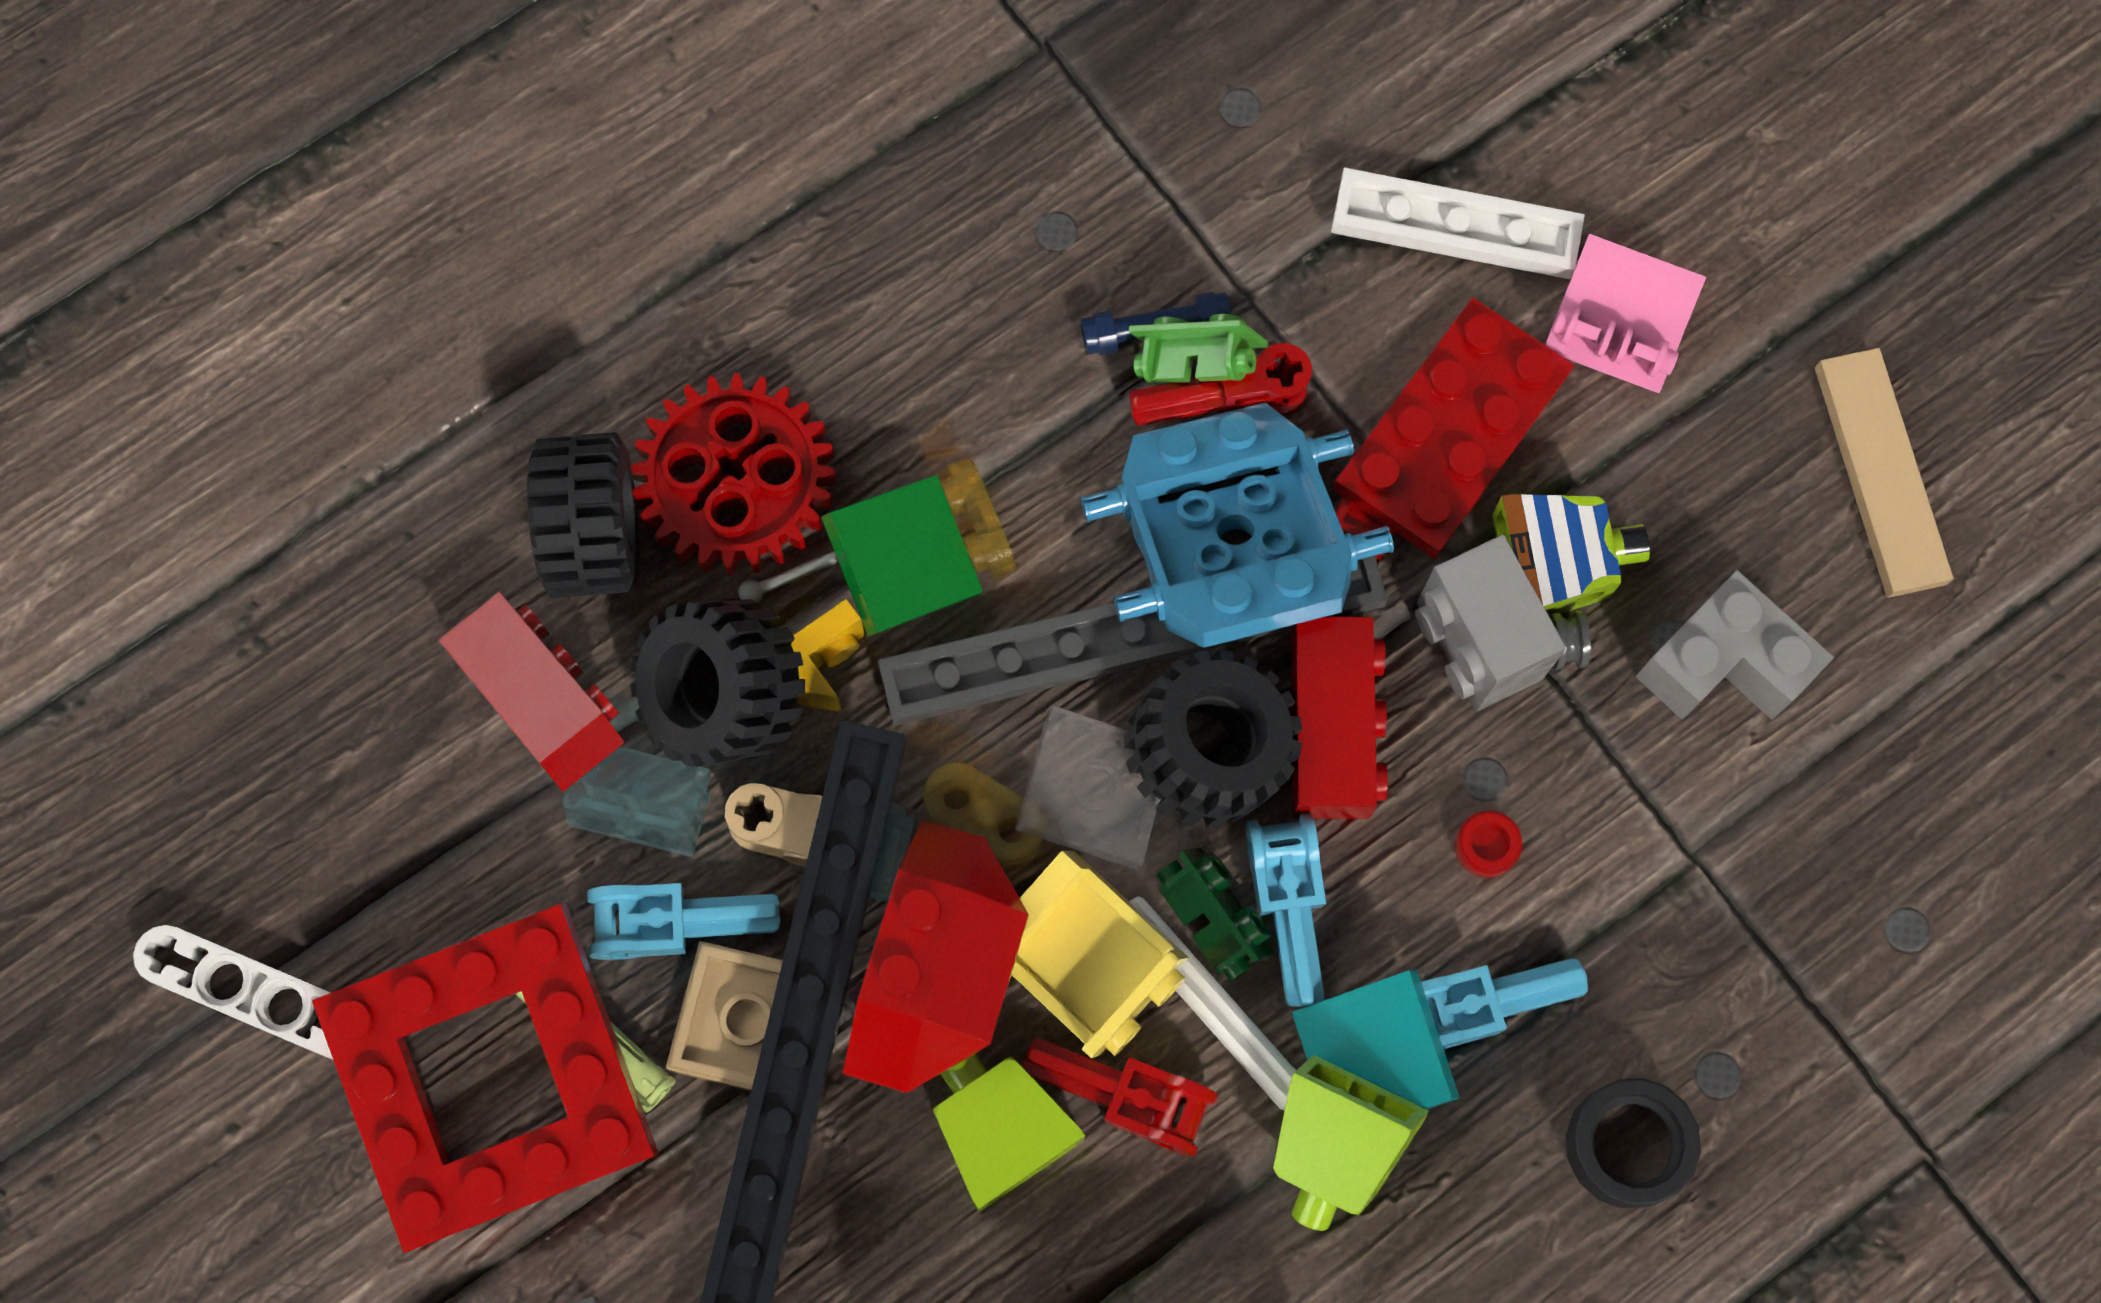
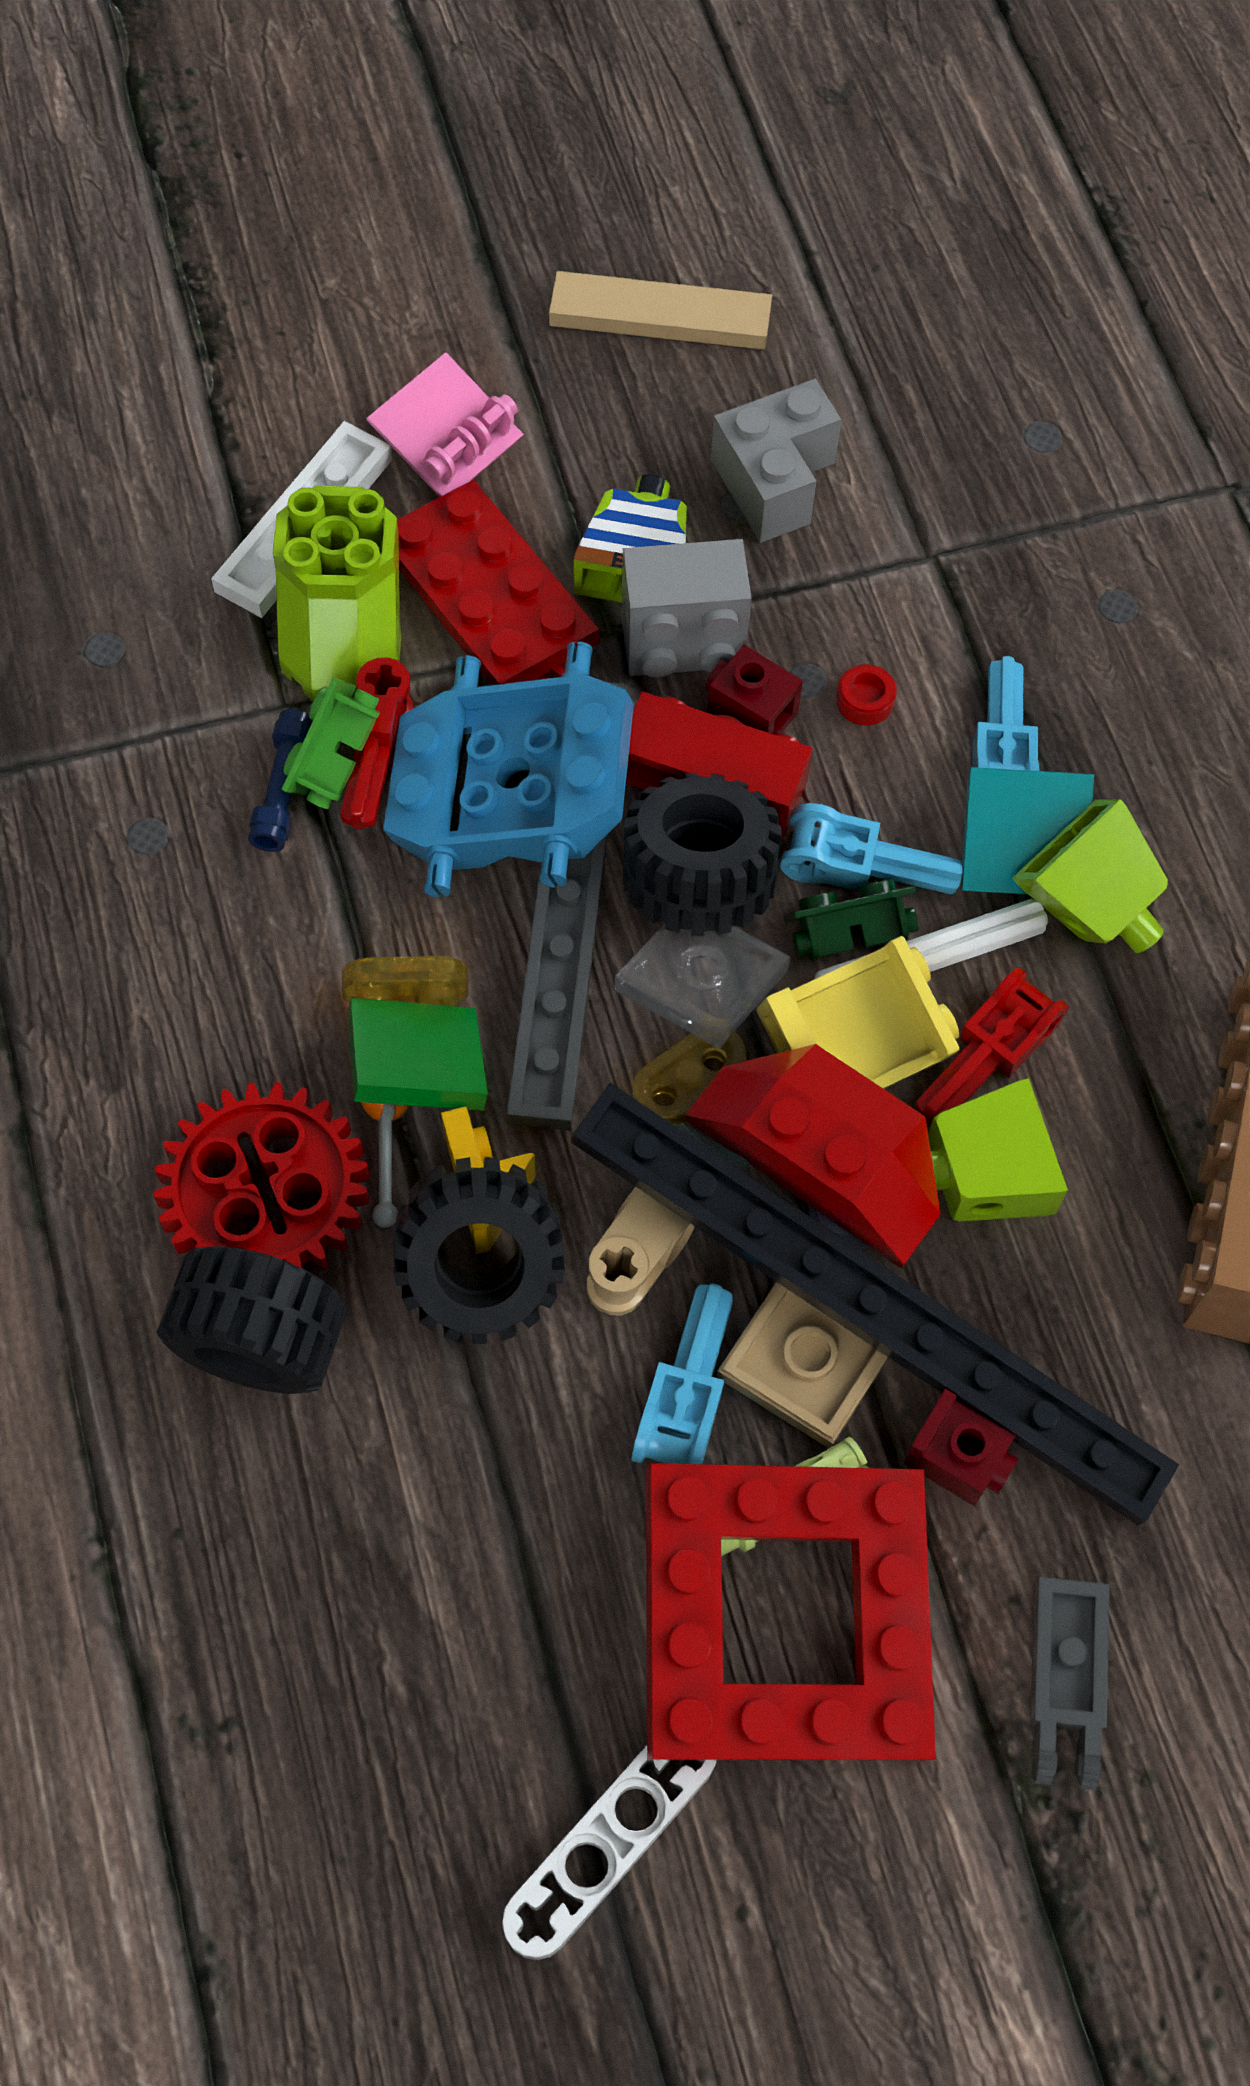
camera: 70 degrees left, 10 degrees down
(534, 689) = (409, 1435): brick -> none
(641, 800) = (554, 1380): clear light blue hinge -> none
(687, 1162) = (946, 1465): none -> dark red brick
(1367, 285) = (335, 584): none -> lime brick
(1427, 729) = (754, 691): none -> dark red brick
(1678, 1120) = (1169, 641): black tyre -> none

